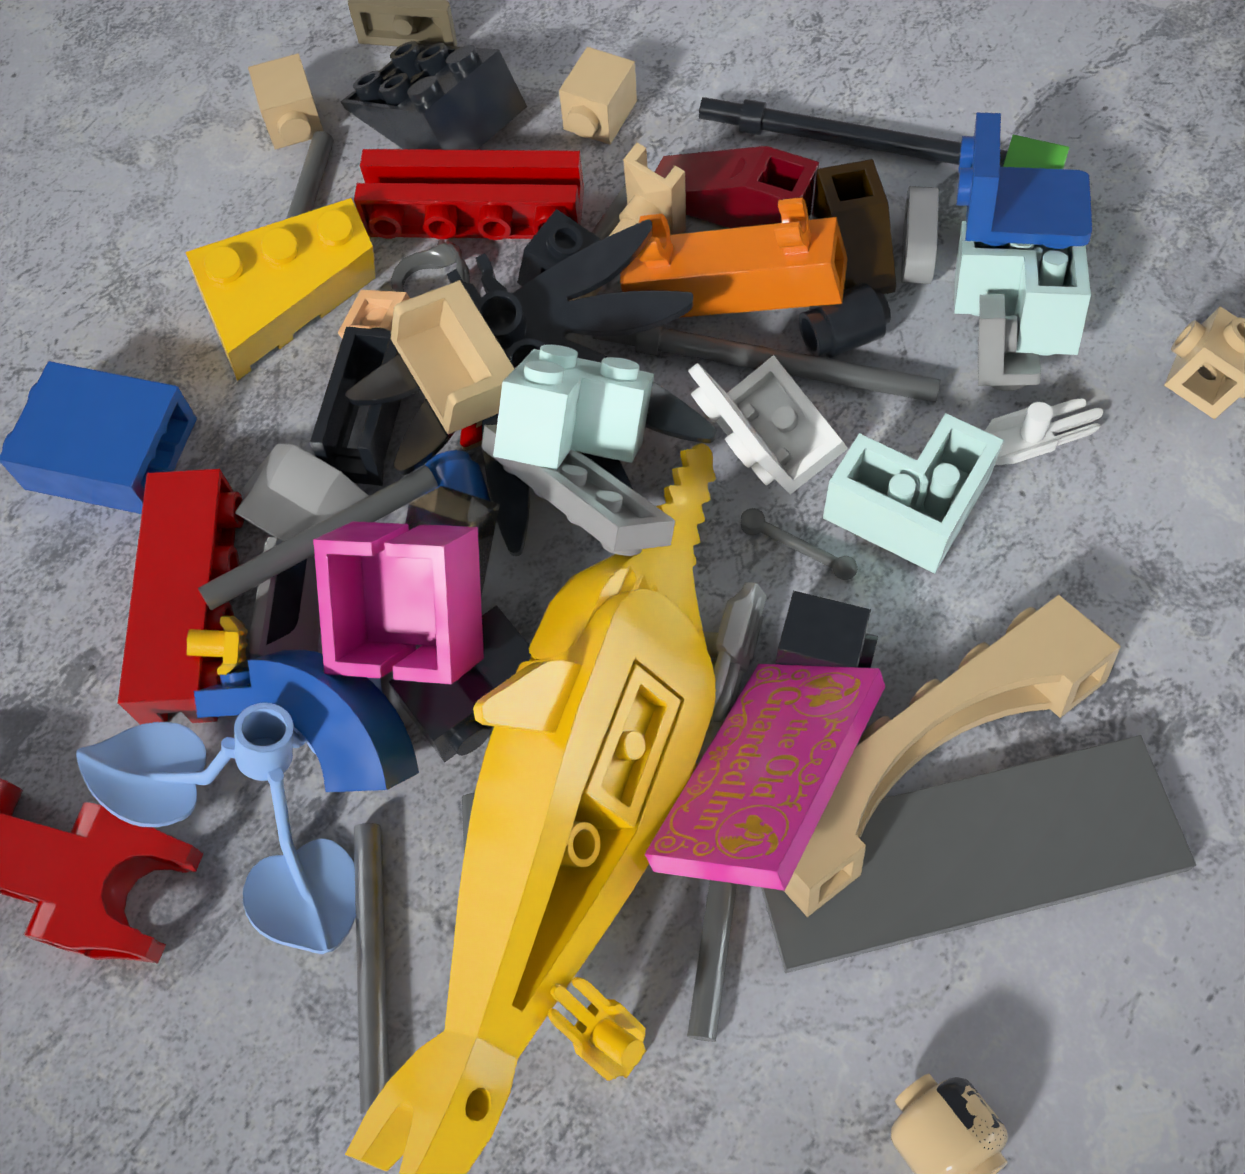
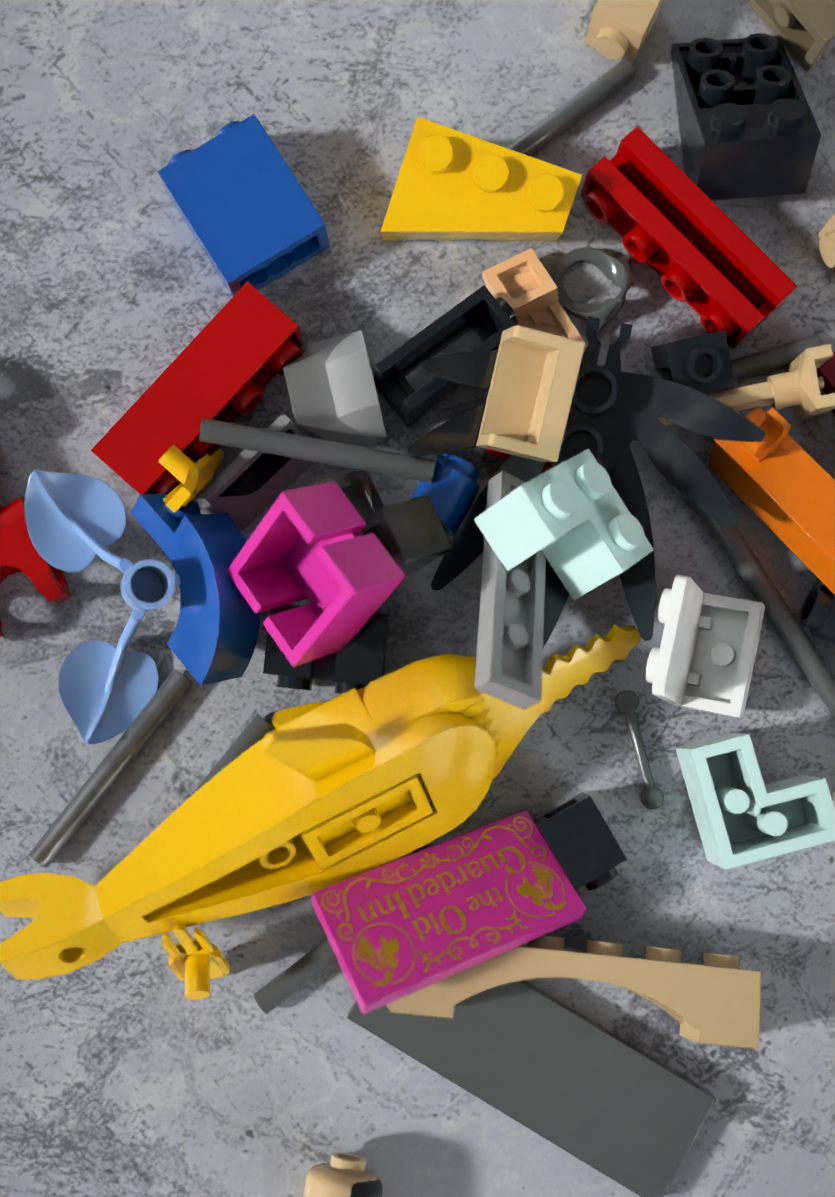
camera: 40 degrees right, 20 degrees up
(735, 644) = (523, 784): light grey piece -> none

